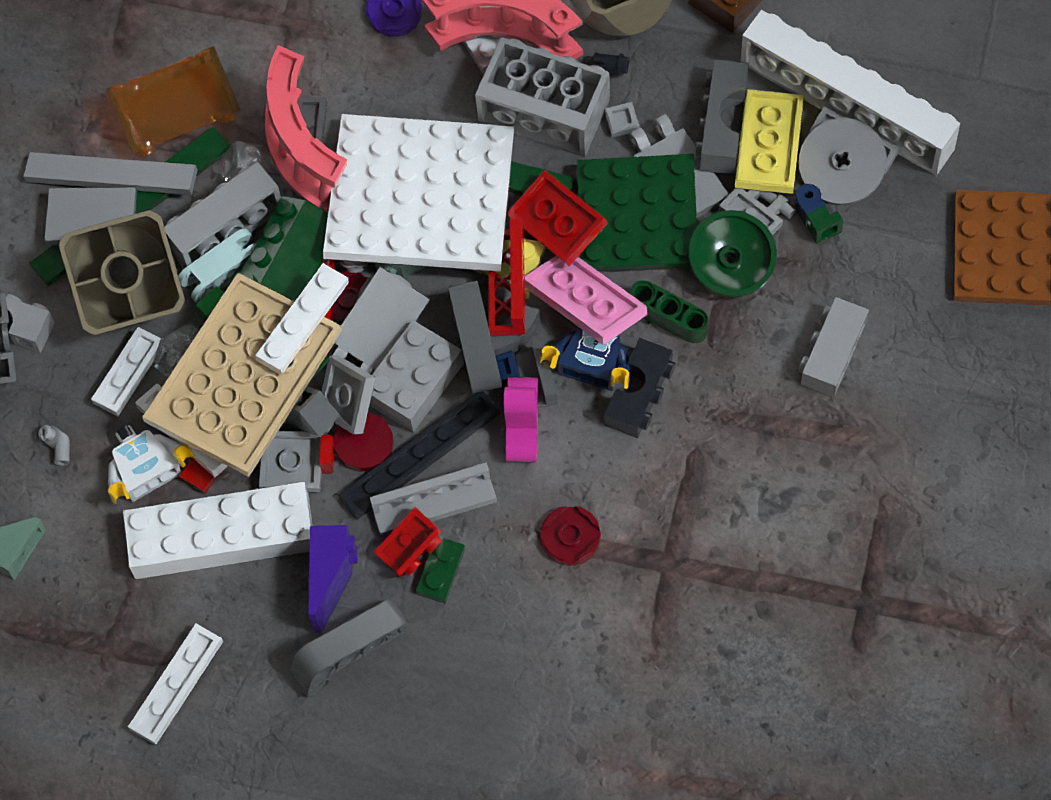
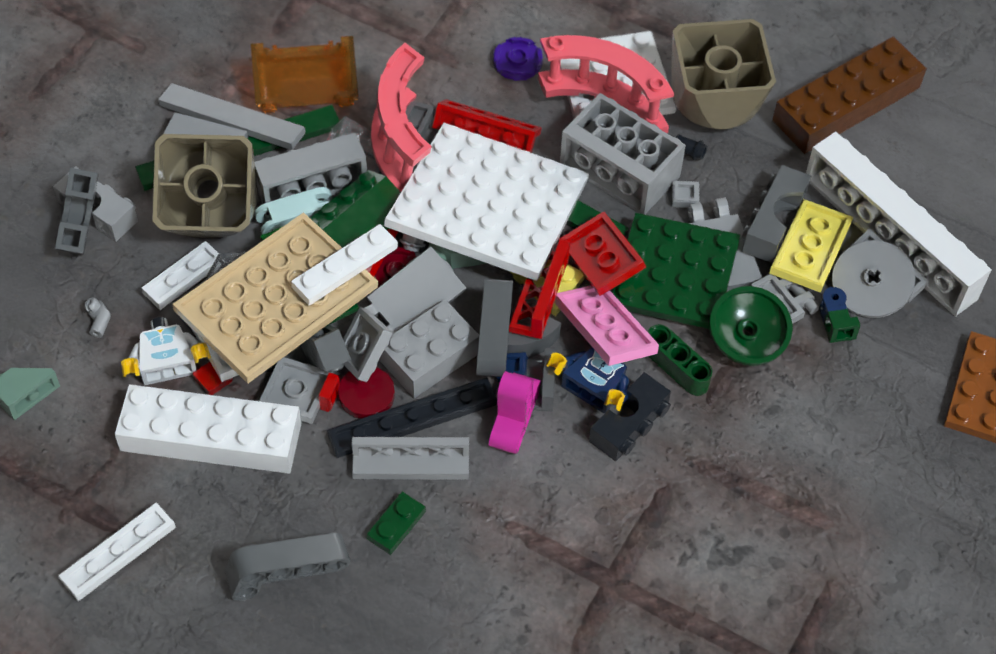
camera: 10 degrees right, 10 degrees down
(330, 570) = (292, 491): dark purple slope -> none
(387, 100) = (487, 124): none -> red fence
(409, 542) = (374, 489): red bracket -> none
(579, 536) = (524, 537): dark red tile -> none
(833, 346) = (821, 432): light grey brick -> none

